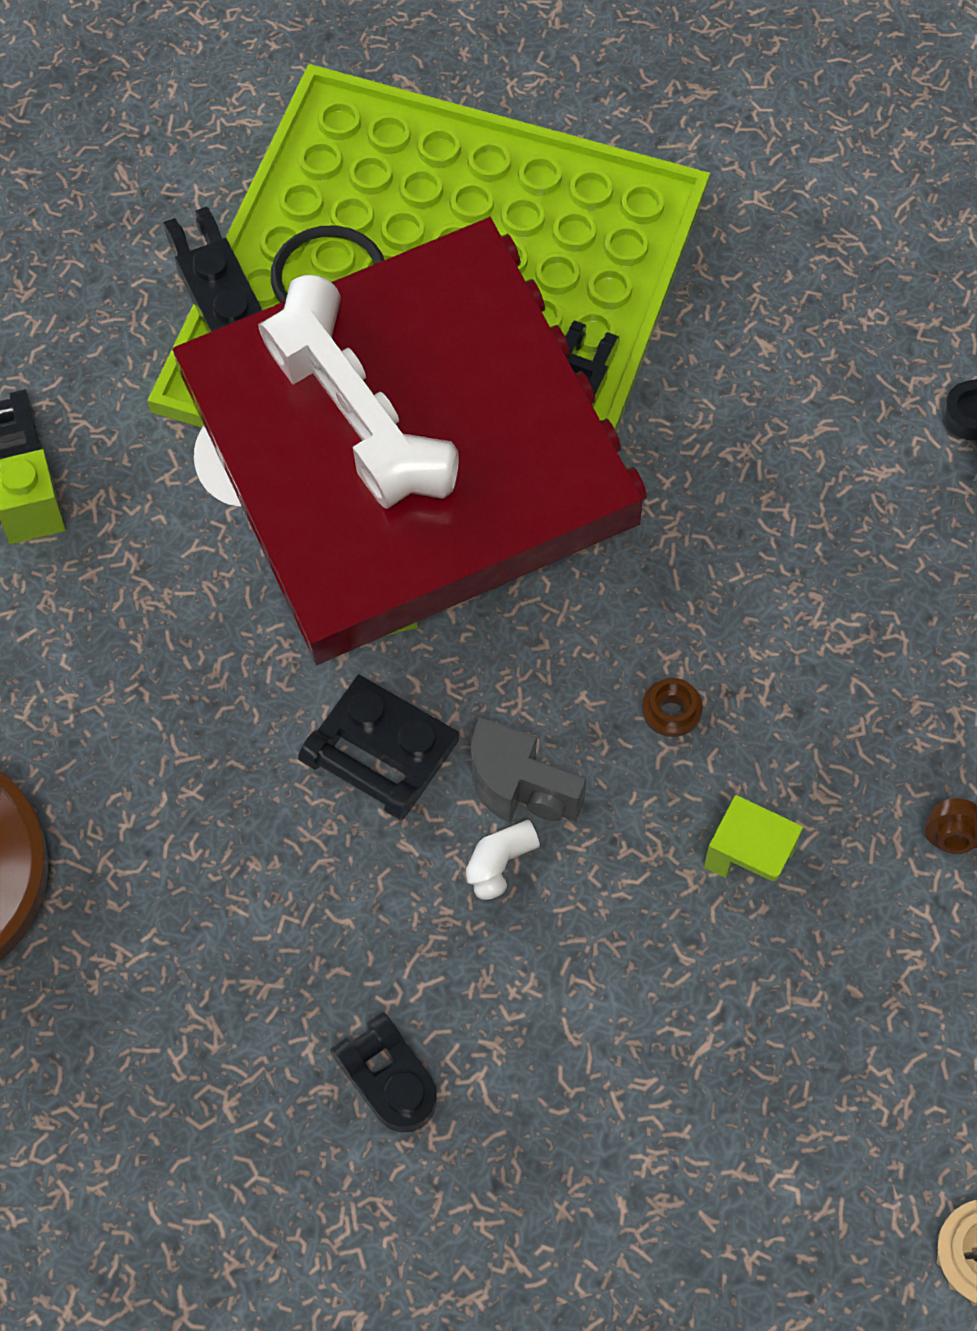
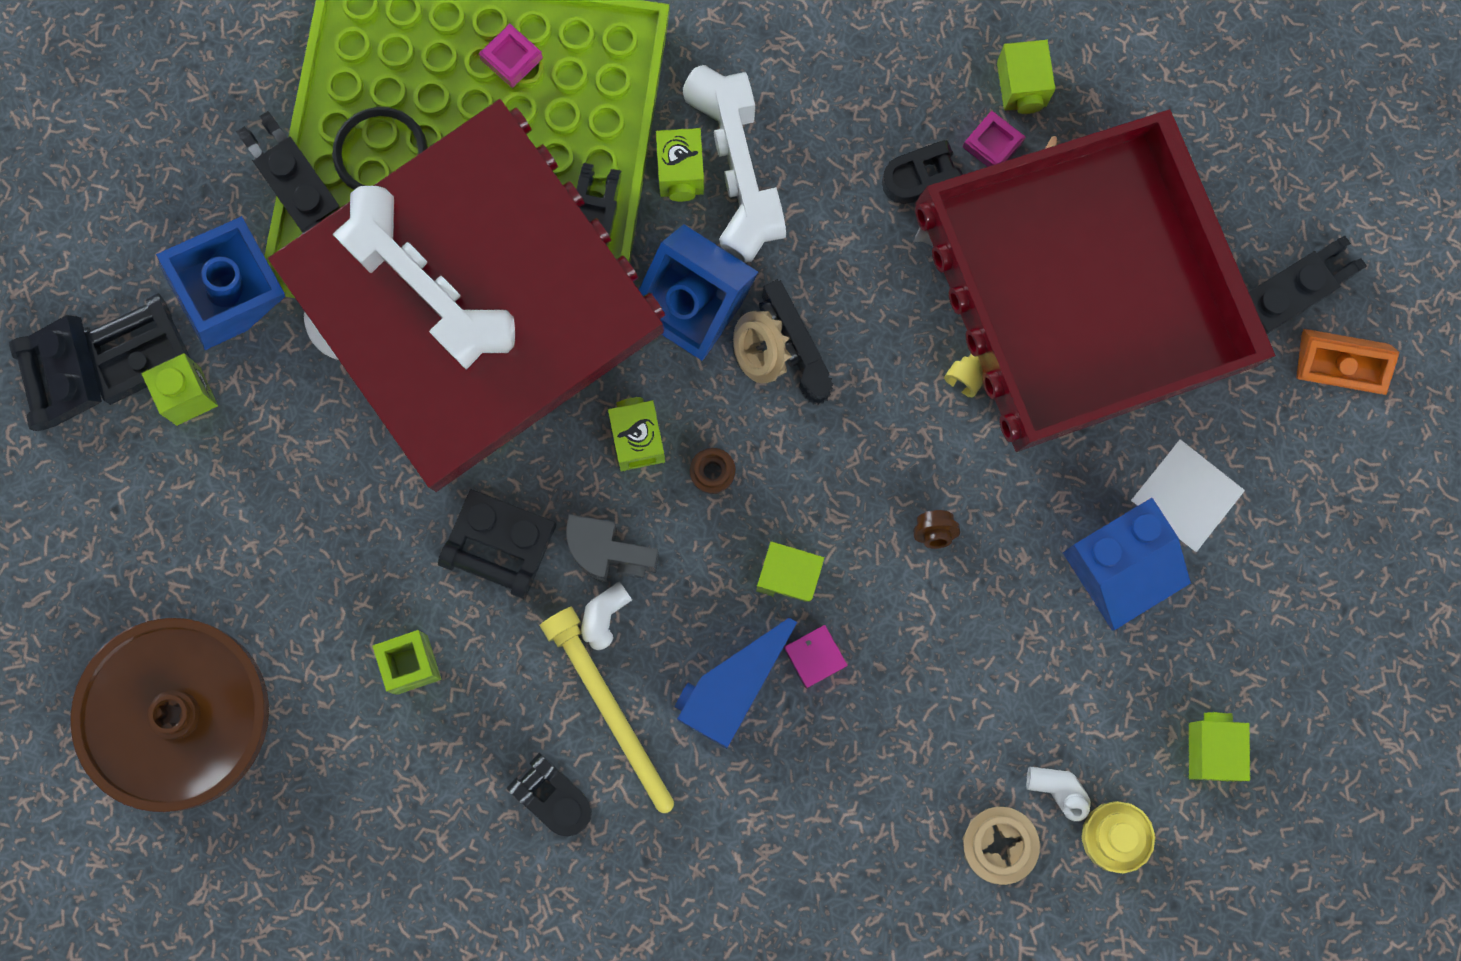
camera: 15 degrees left, 15 degrees up
(105, 384) = (221, 281): none -> blue slope
(234, 861) = (406, 662): none -> lime brick
(444, 864) = (565, 632): none -> light yellow piece
(508, 196) = (511, 55): none -> dark pink tile
(582, 645) = (636, 433): none -> lime brick
(651, 974) = (727, 691): none -> blue slope
(693, 346) = (680, 164): none -> lime brick
(693, 490) = (696, 288): none -> blue slope
(748, 552) = (748, 334): none -> tan gear
(770, 960) = (815, 656): none -> dark pink tile
(783, 413) = (732, 105): none -> white plate
(806, 573) = (815, 376): none -> black hinge

